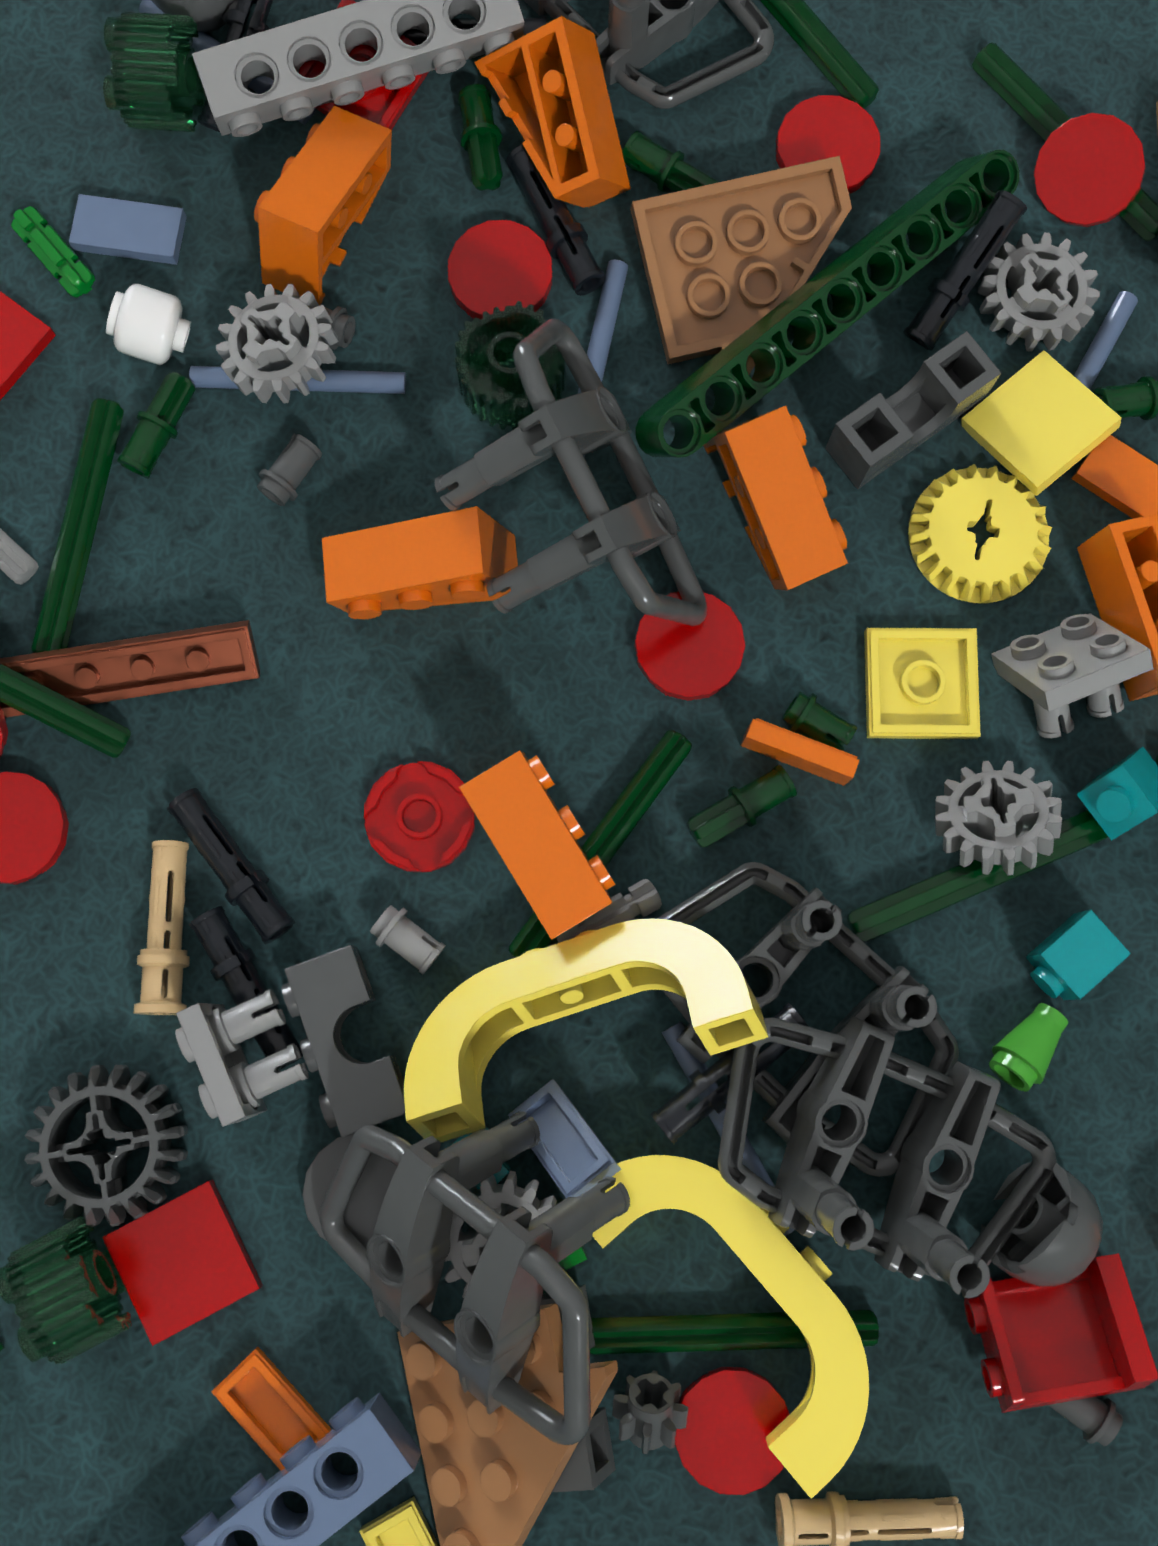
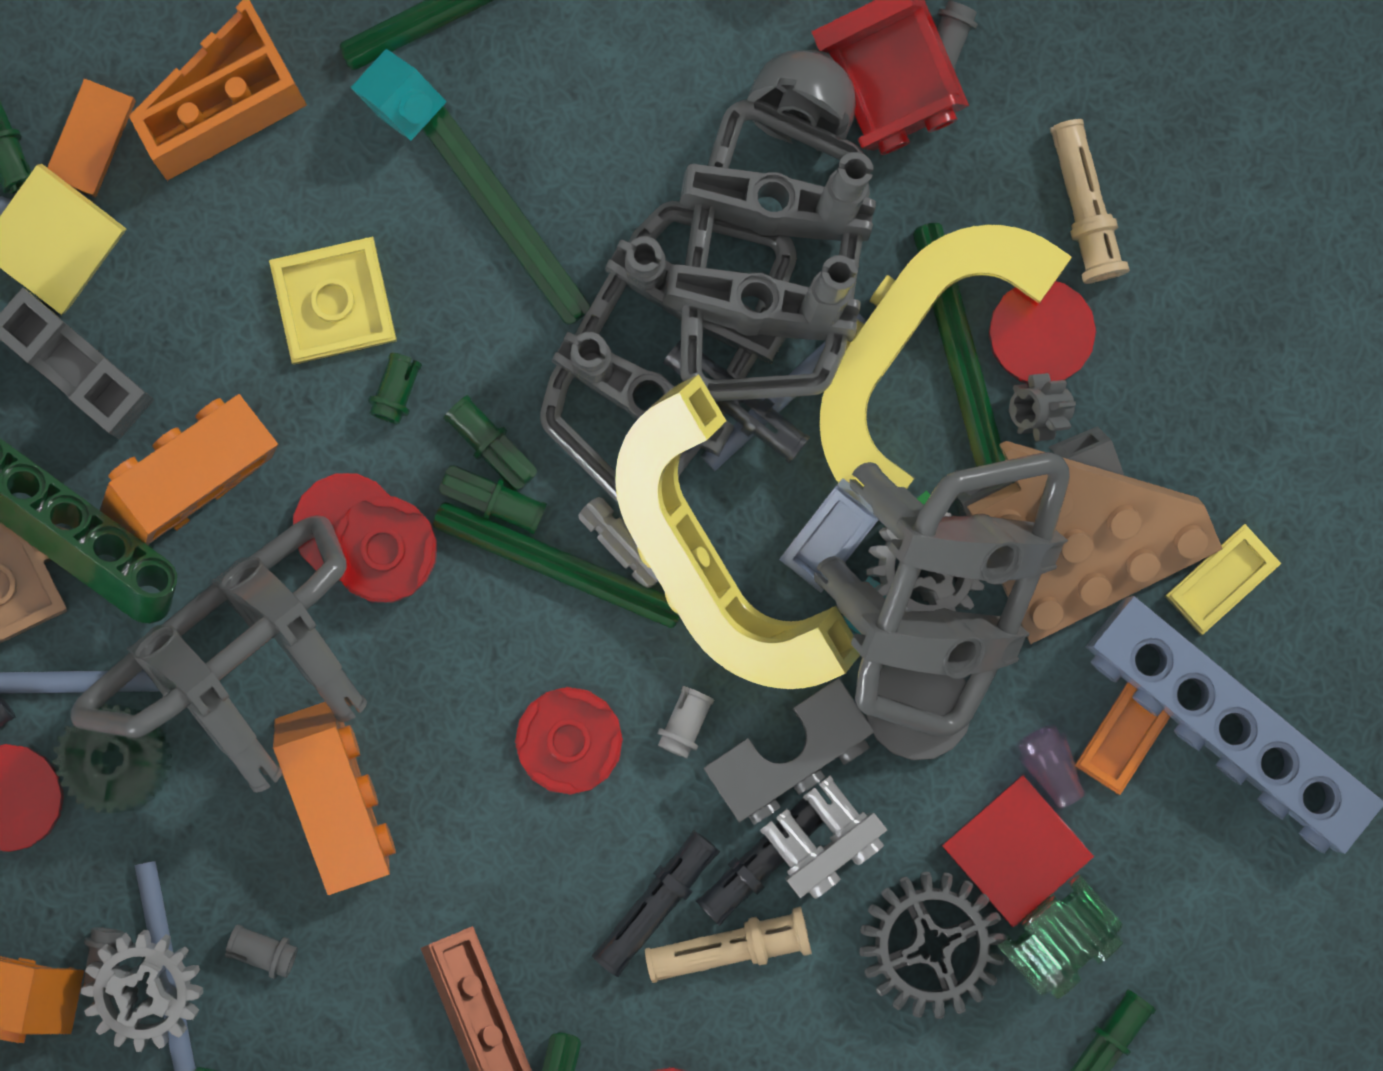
camera: 100 degrees left, 5 degrees up
(262, 1324) = (1051, 763): none -> clear purple cone
(539, 842) = (569, 619): orange wedge -> none
(657, 673) = (386, 548): none -> red tile
(684, 795) = (492, 498): none -> dark green axle
(800, 751) = (427, 400): orange tile -> none
(947, 550) = (197, 302): light yellow gear -> none
(998, 817) = (434, 184): light grey gear -> none
(1028, 1049) = (650, 138): bright green cone -> none
(1072, 663) = (289, 168): light grey plate -> none
(1076, 957) = (559, 113): teal brick -> none

